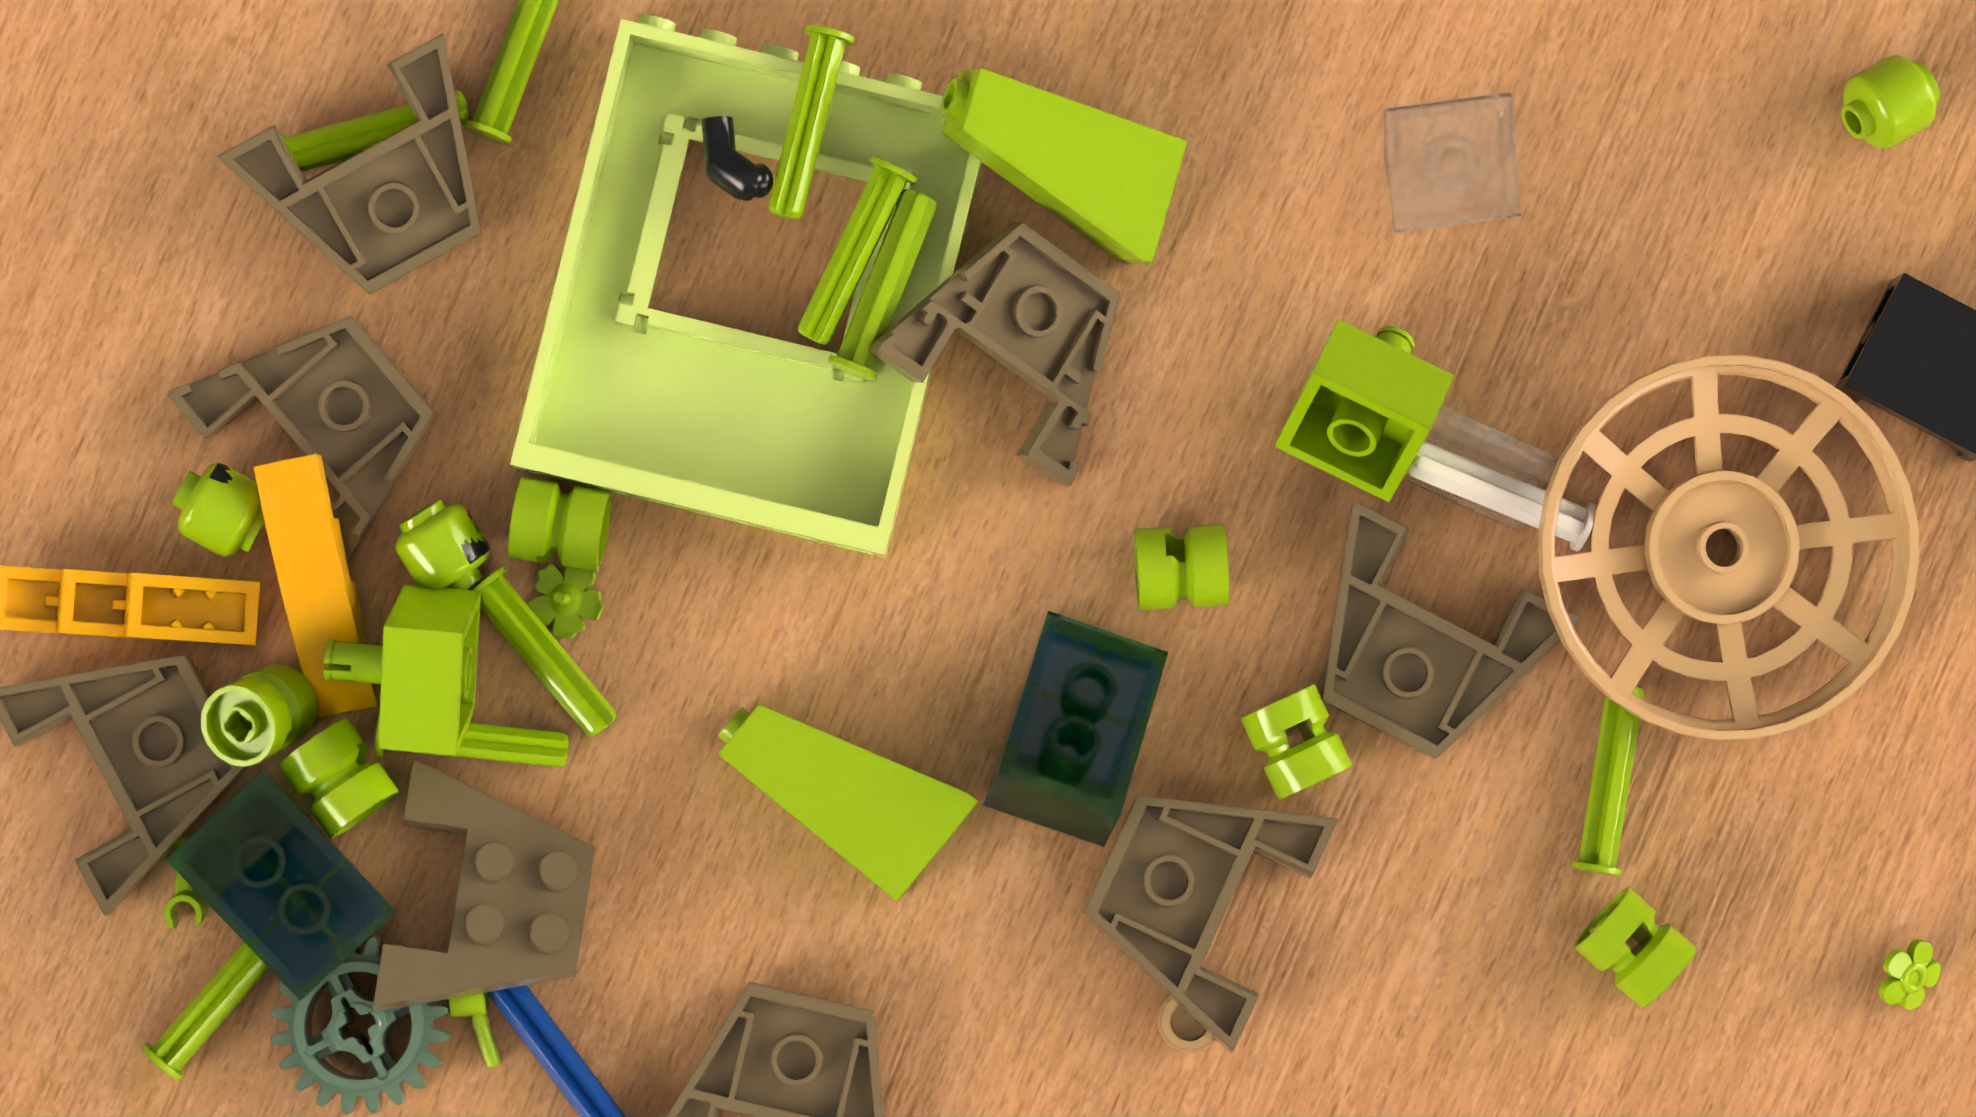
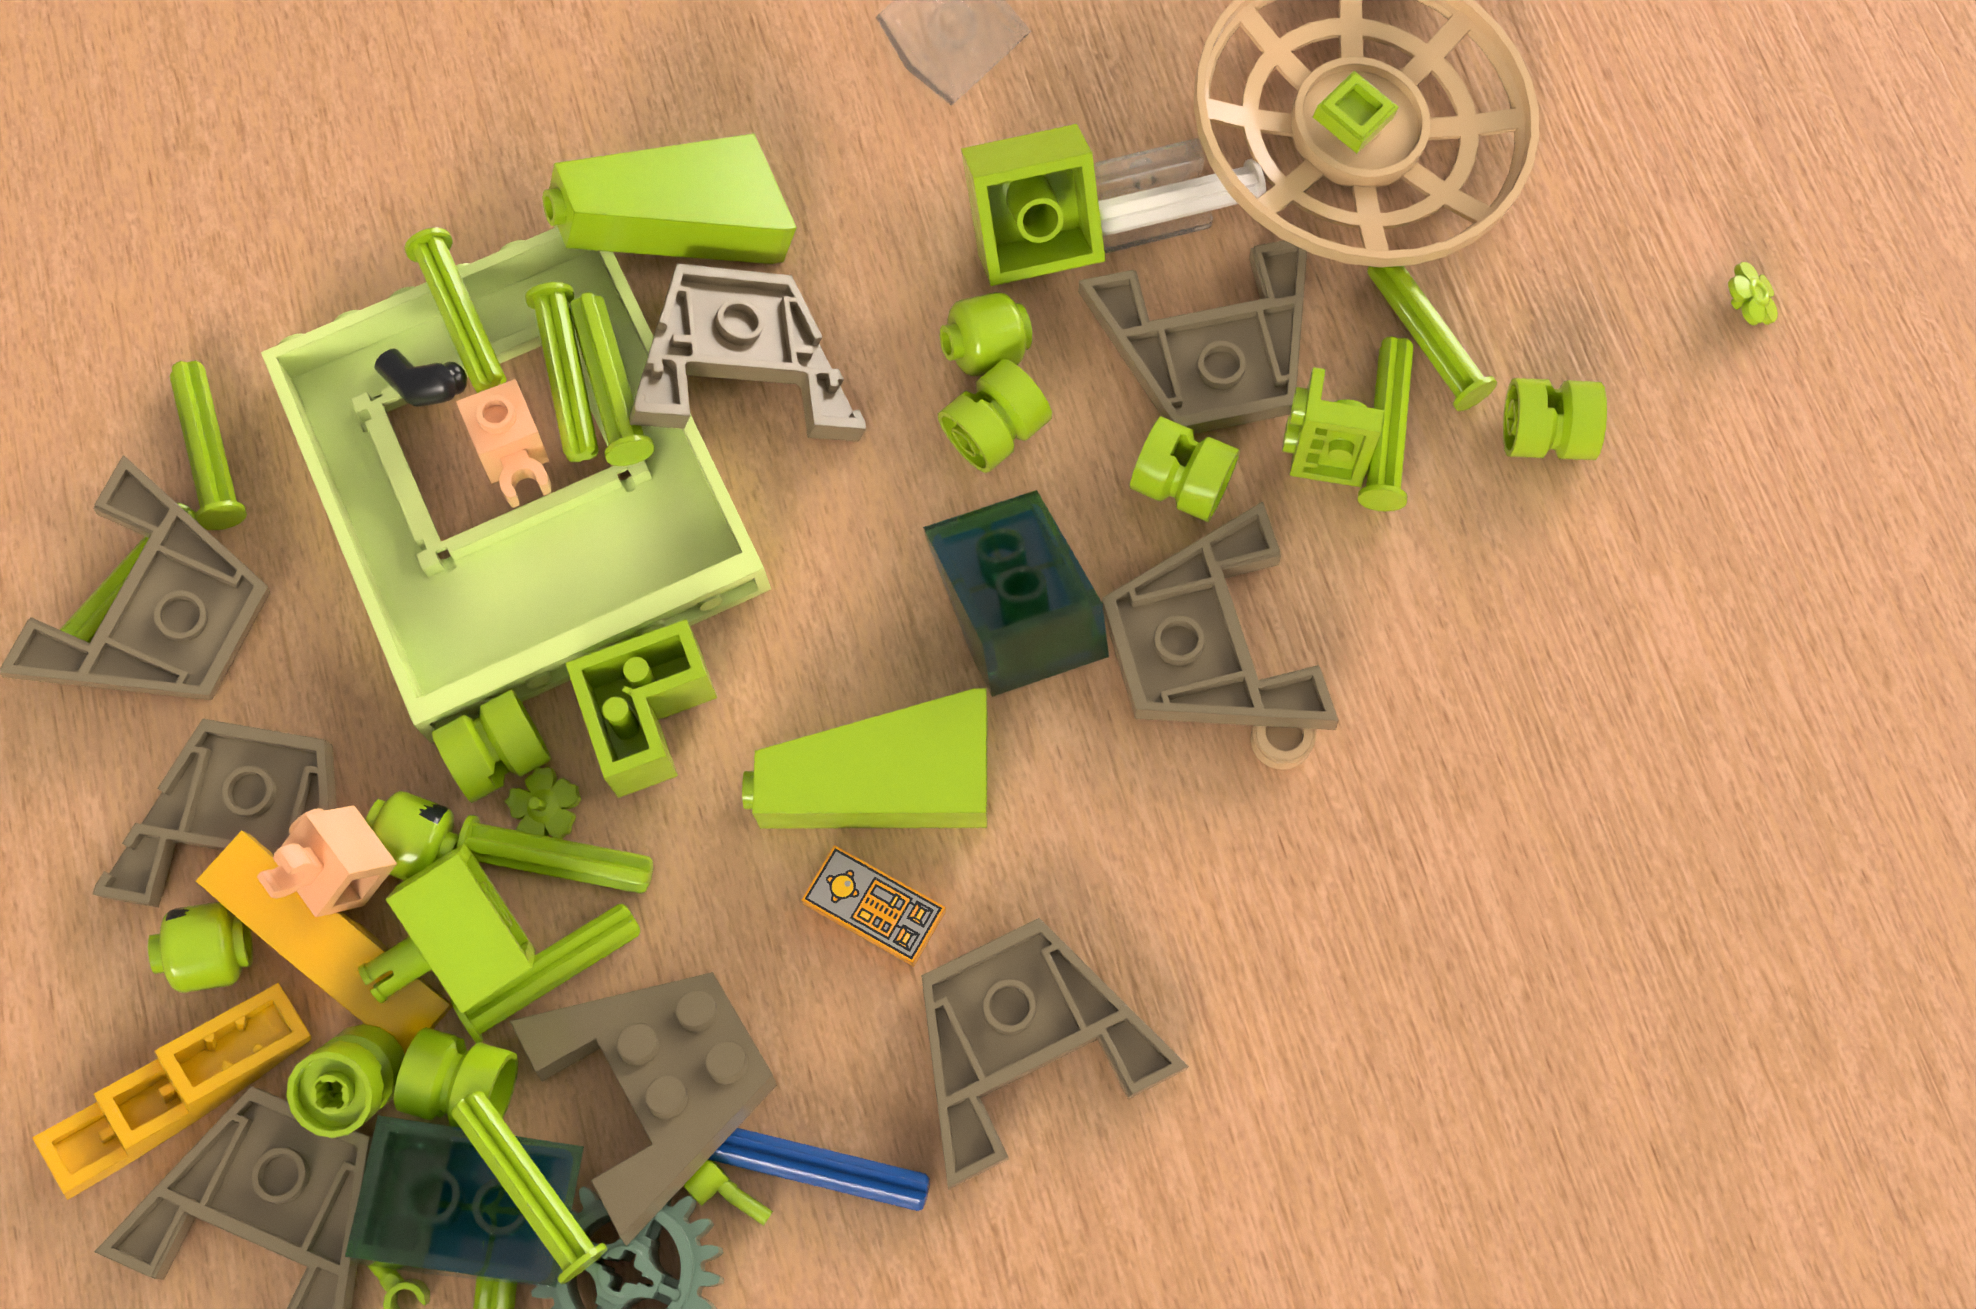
camera: 35 degrees left, 15 degrees down
(332, 911) = (526, 1186): none -> lime axle
(365, 533) = (329, 861): none -> light nougat brick
(688, 572) = (627, 693): none -> lime brick
(758, 280) = (506, 438): none -> light nougat brick
(758, 893) = (874, 905): none -> tile
(1236, 485) = (985, 331): none -> lime head
(1434, 825) = (1328, 437): none -> lime bracket
(1503, 835) = (1392, 395): none -> lime axle
(1706, 551) = (1355, 112): none -> lime tile

